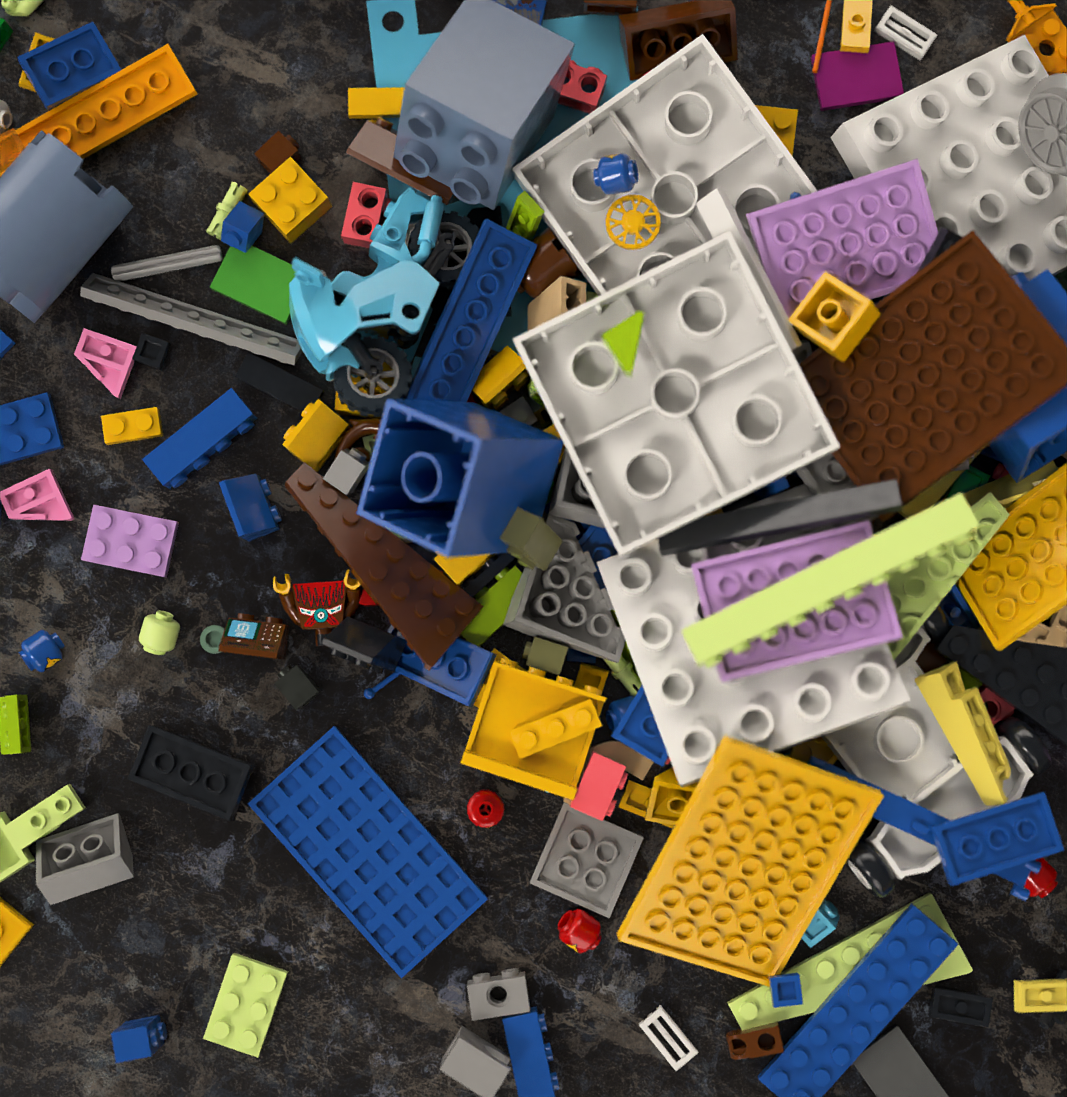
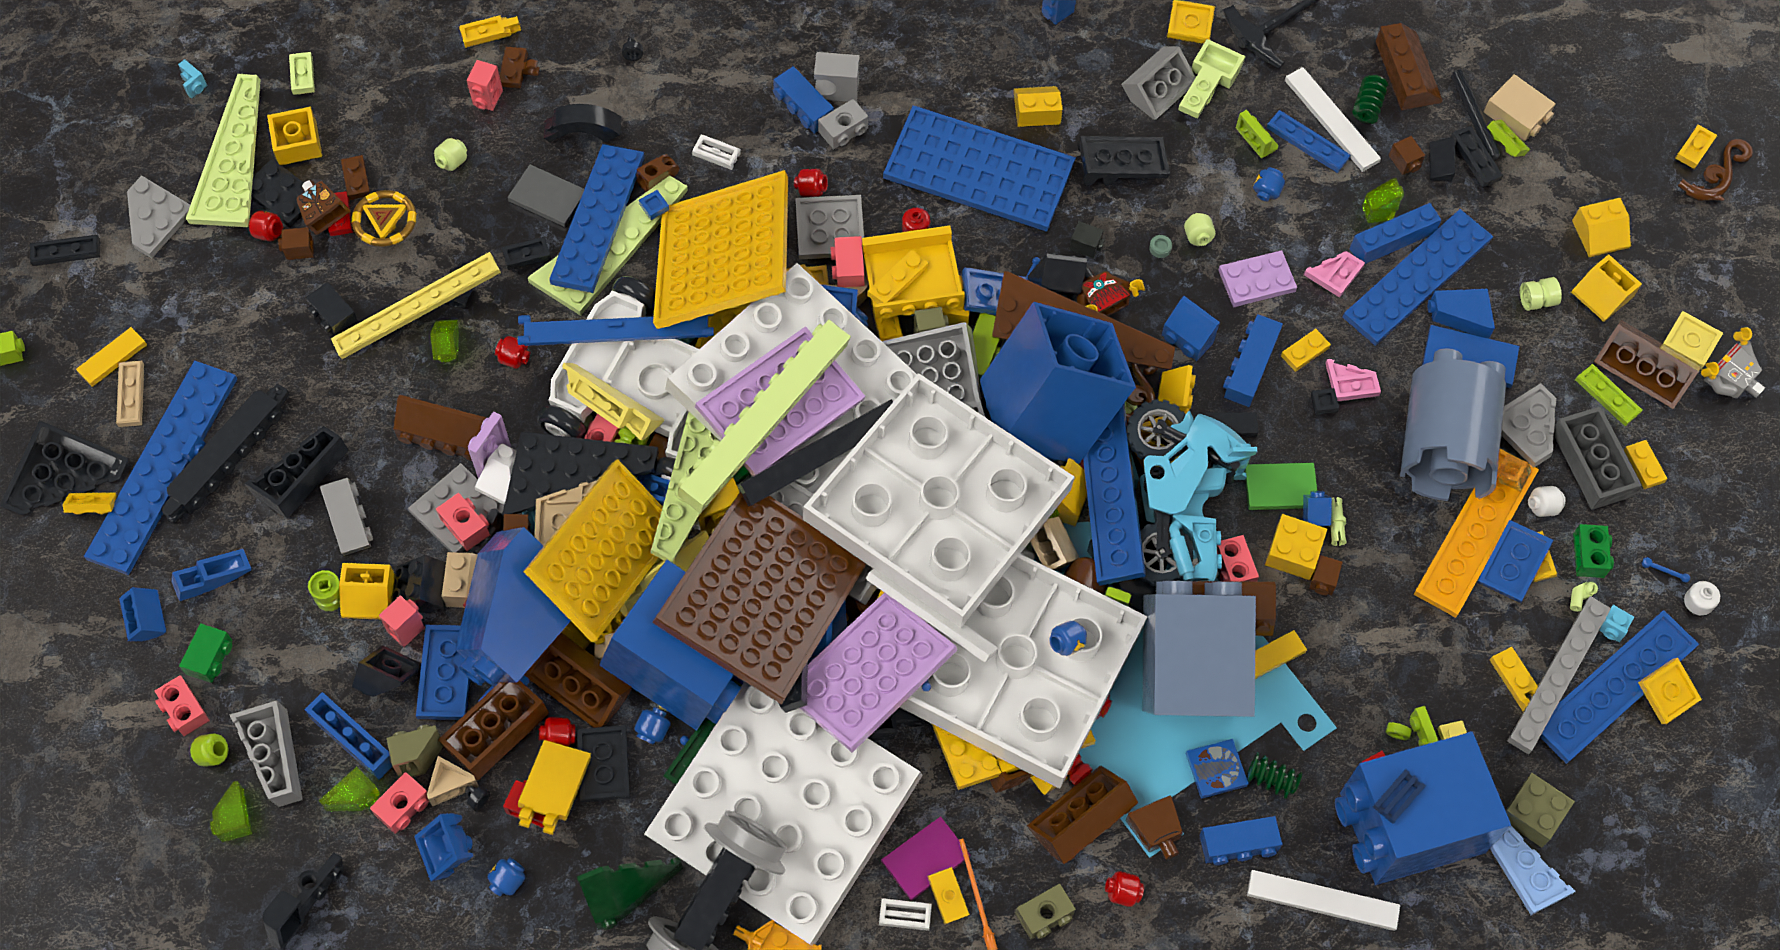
camera: 150 degrees right, 20 degrees down
(167, 263) = (1355, 465): light grey axle -> none
(191, 318) = (1324, 432): light grey plate -> none
(245, 1005) = (1003, 51): yellowish green plate -> none
(248, 905) = (1038, 106): none -> yellow slope
(255, 638) = (1133, 251): reddish brown slope -> none
(347, 470) = (1141, 376): light grey brick -> none
(530, 540) = (984, 370): olive brick -> none
(572, 92) = (1137, 729): coral brick -> none
(624, 341) = (994, 500): lime slope -> none
(633, 222) = (1036, 616): yellow wheel -> none
(822, 923) = (648, 261): medium azure bracket -> none
(834, 316) = (853, 600): yellow brick -> none
(997, 838) = (558, 339): blue plate -> none

